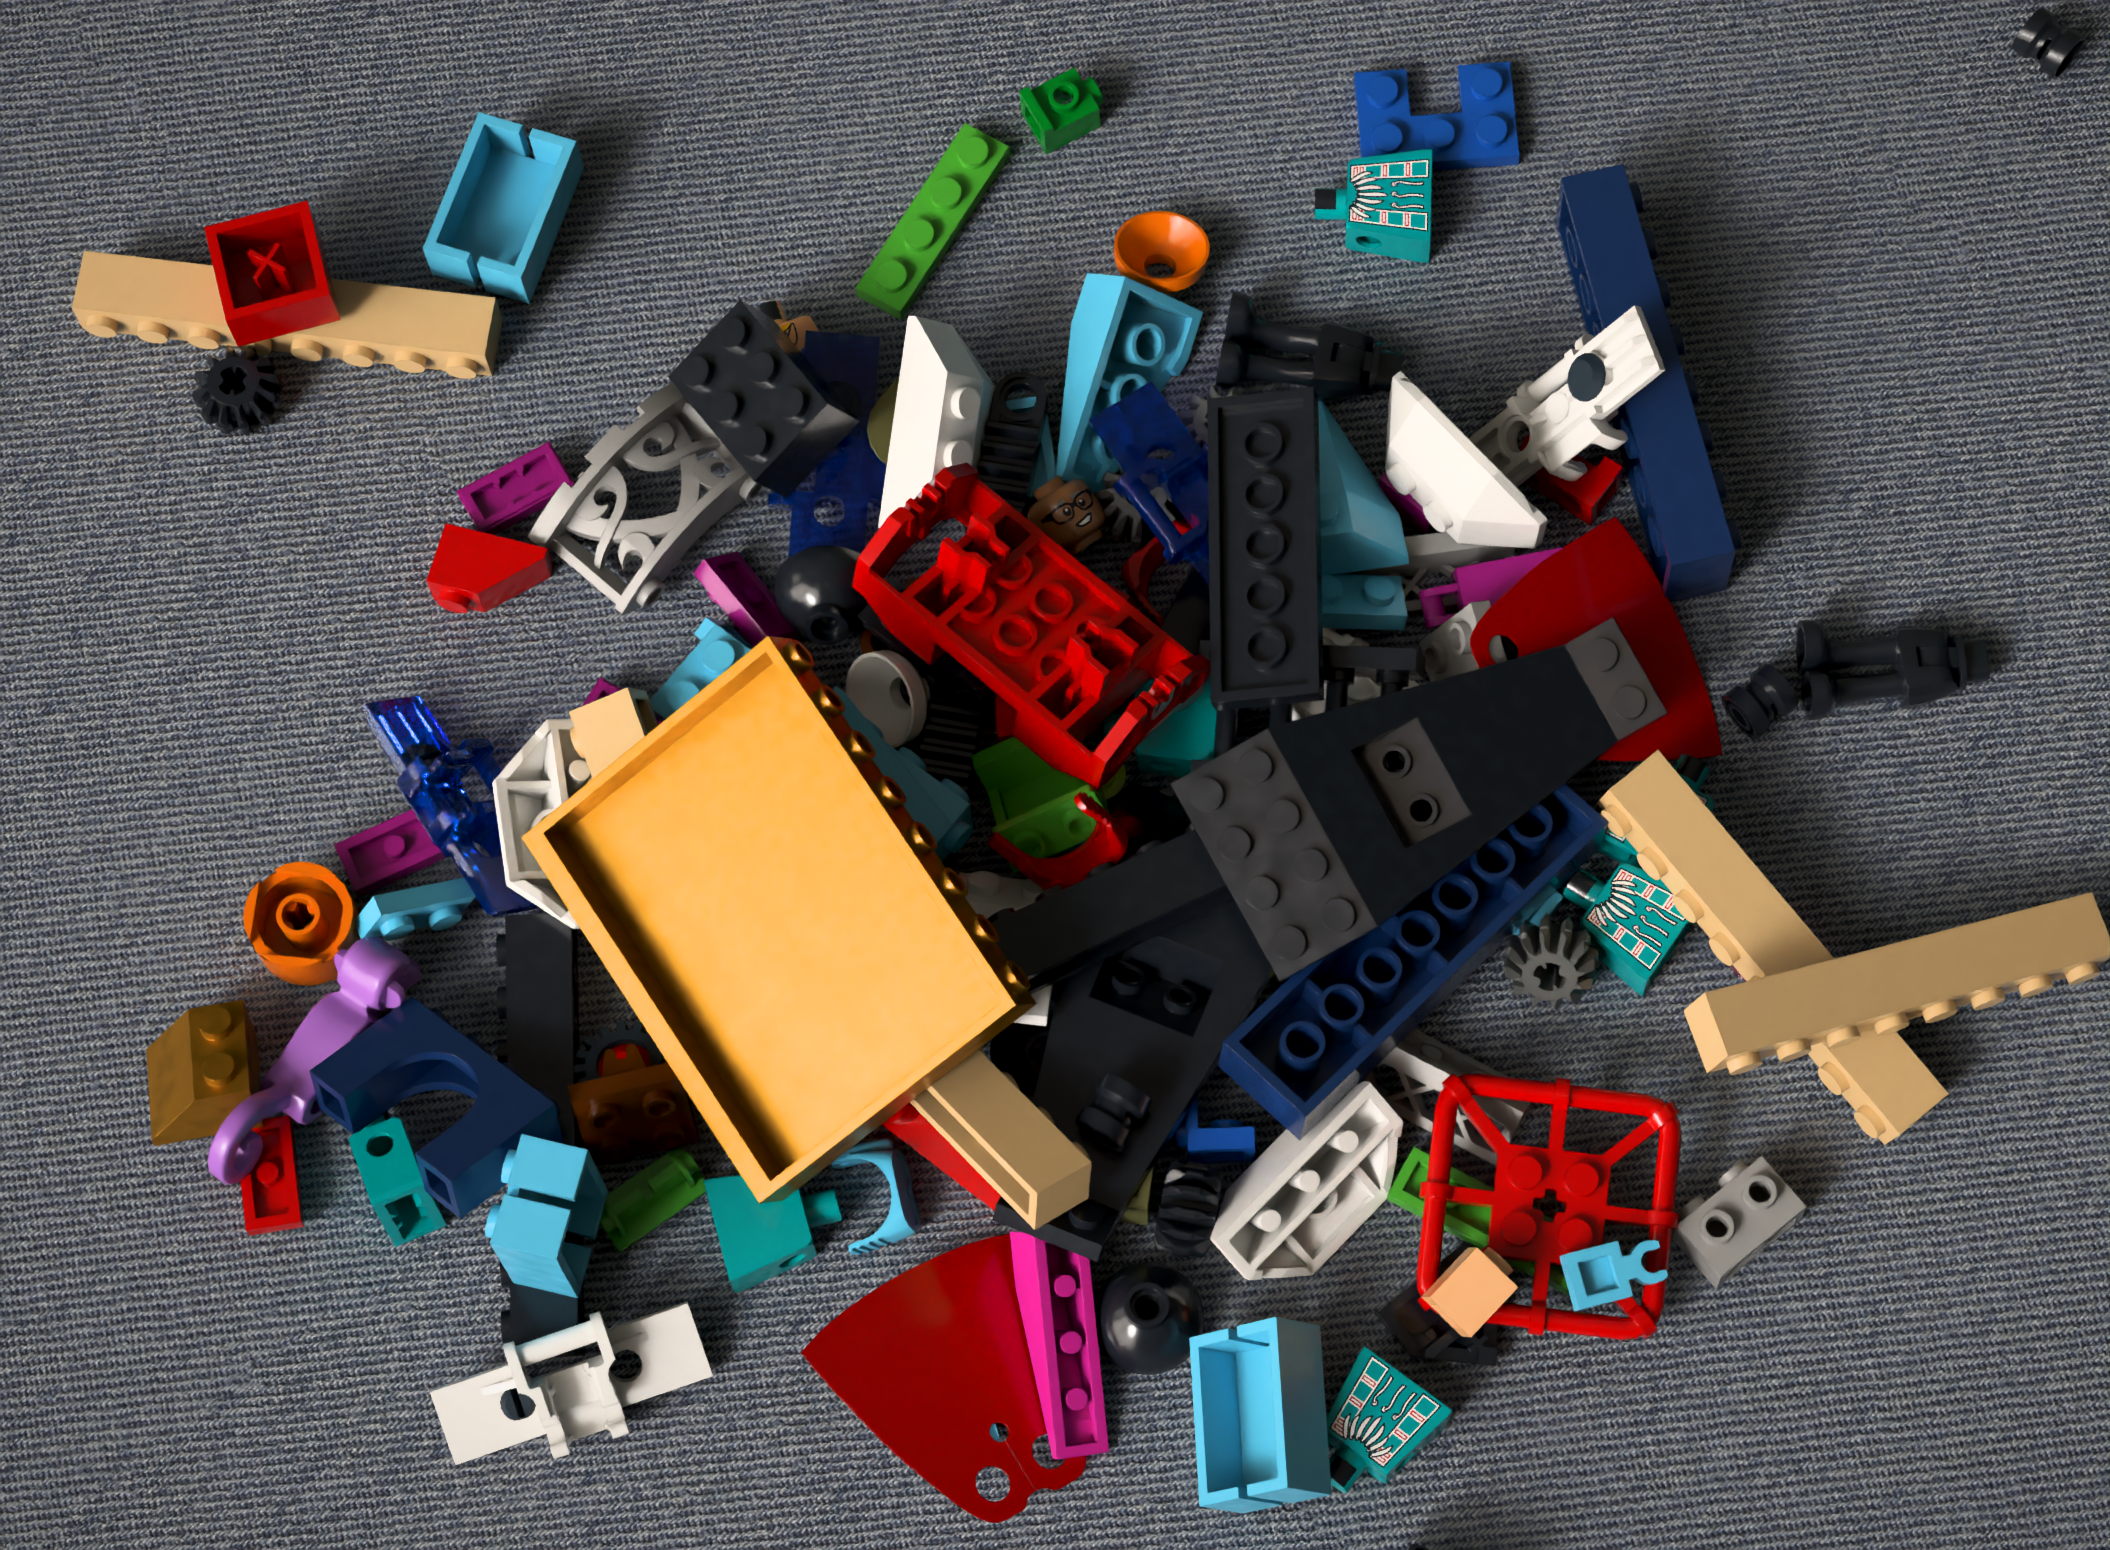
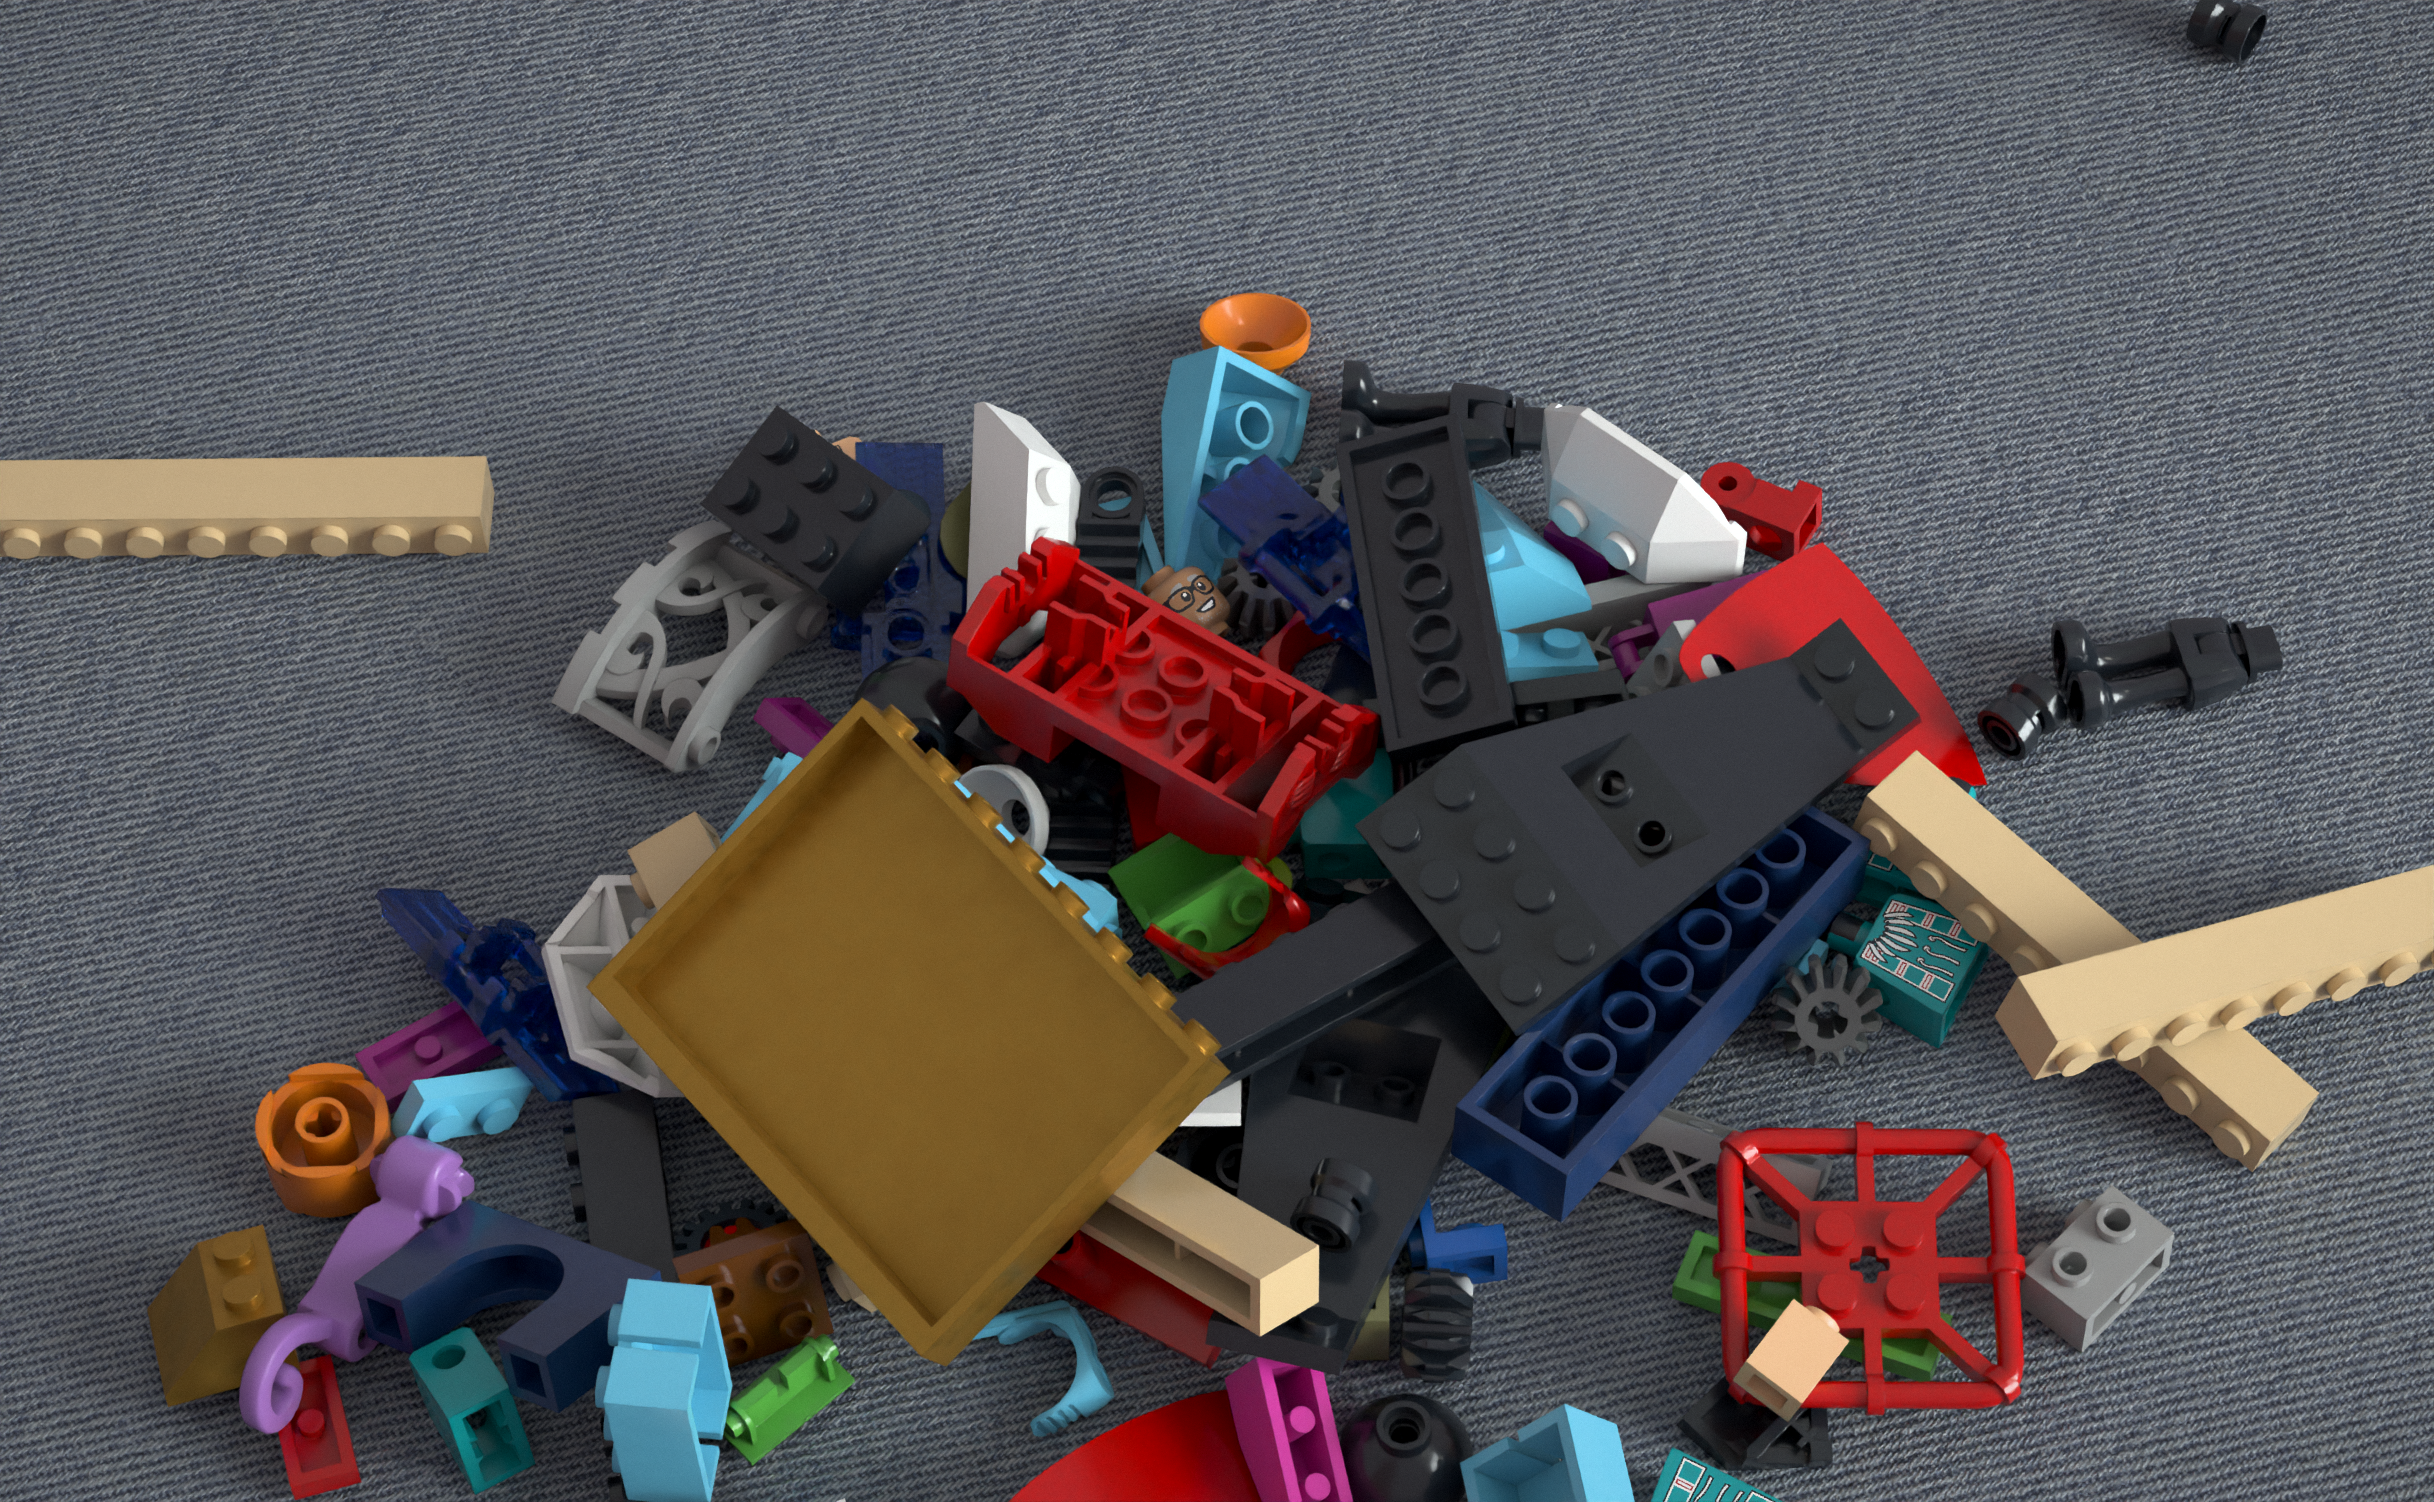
camera: 10 degrees left, 15 degrees down
(218, 384) = (190, 592): black gear -> none
(272, 273) = (223, 447): red brick -> none
(483, 569) = (504, 744): red slope -> none
(503, 208) = (481, 377): medium azure piece -> none
(514, 490) = (525, 662): magenta plate -> none
(769, 1236) = (927, 1413): teal torso -> none
(933, 221) = (985, 338): bright green plate -> none
(1060, 123) = (1118, 208): green brick -> none
(1311, 1192) = (1584, 1285): white wedge -> none
(1384, 205) = (1503, 262): torso -> none
(1474, 138) = (1597, 188): blue plate -> none
(1561, 424) = (1766, 402): white piece -> none
(1603, 1275) = (1948, 1328): medium azure plate -> none
(1666, 444) = (1835, 402): dark blue brick -> none

